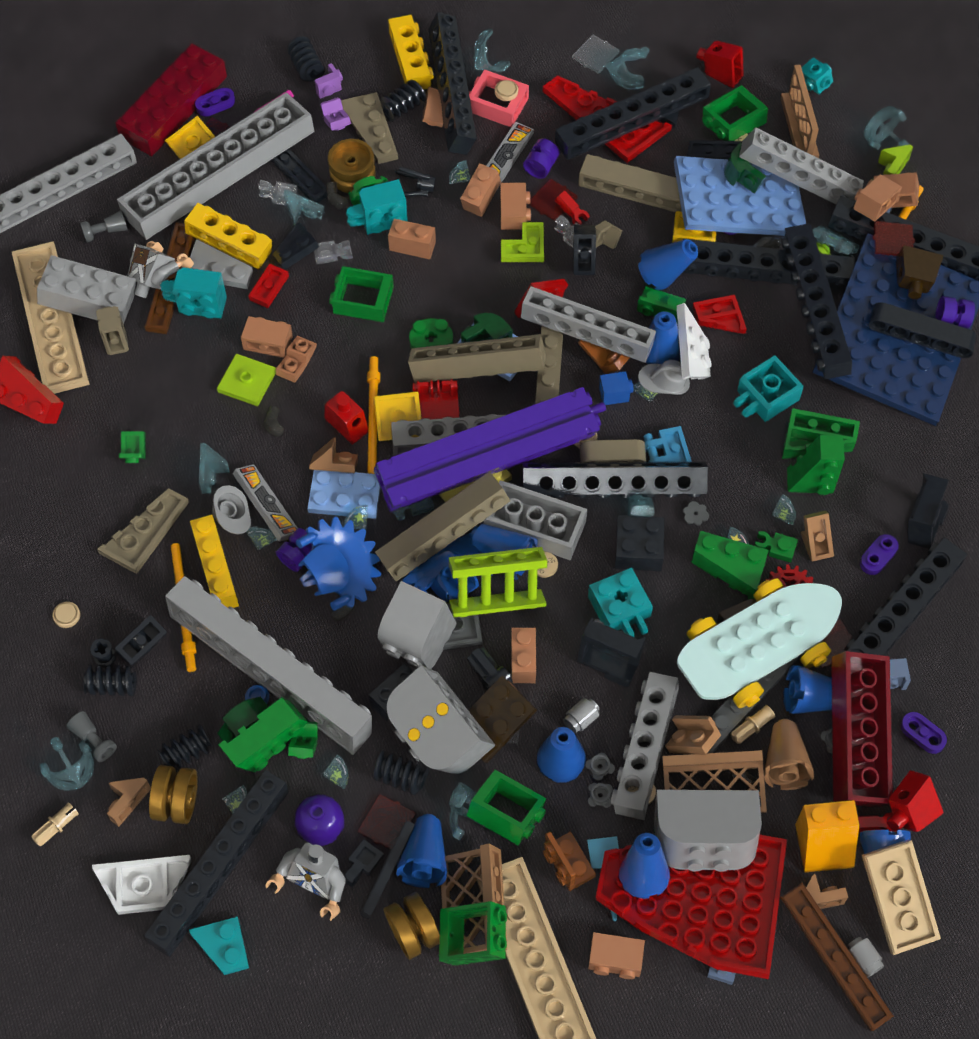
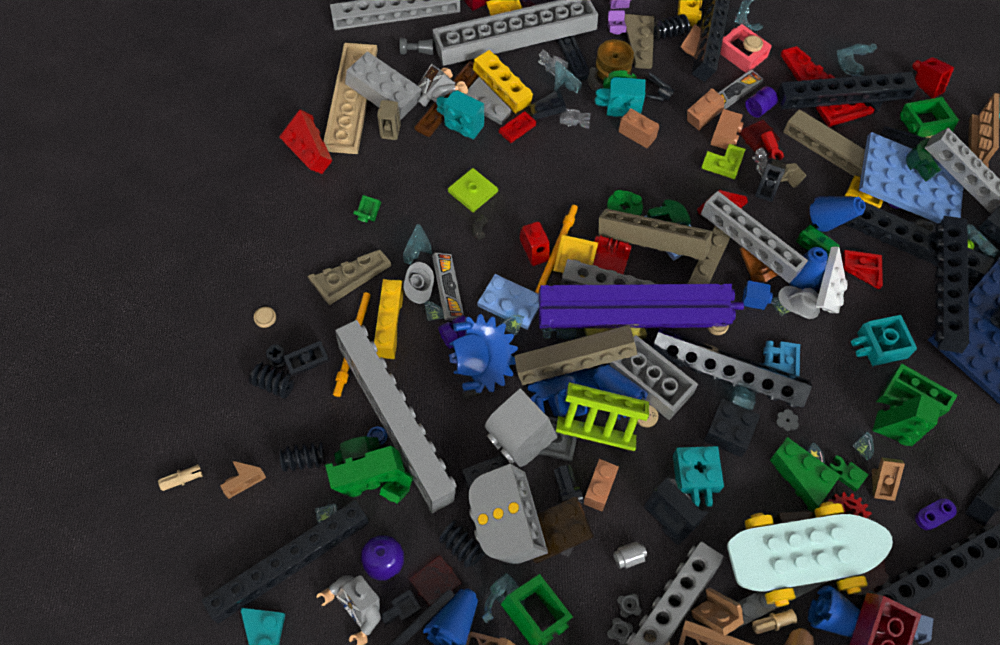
camera: 20 degrees right, 0 degrees up
(73, 772) = (207, 444): clear light blue helmet -> none
(83, 728) = (236, 410): dark grey piece -> none
(142, 883) = (223, 553): white wing -> none
(173, 794) = (276, 490): pearl gold wheel -> none
(266, 336) = (500, 163): nougat brick -> none
(296, 360) = (516, 187): nougat slope -> none
(328, 460) = (509, 271): medium nougat slope -> none
(337, 772) = (414, 523): clear light blue tile -> none
(366, 279) = (591, 145): green window -> none
(459, 173) = (694, 93): clear light blue tile -> none
(561, 756) = (599, 584): blue cone -> none
(595, 54) = (831, 40): clear piece -> none
(613, 451) = (736, 344): dark tan beam -> none

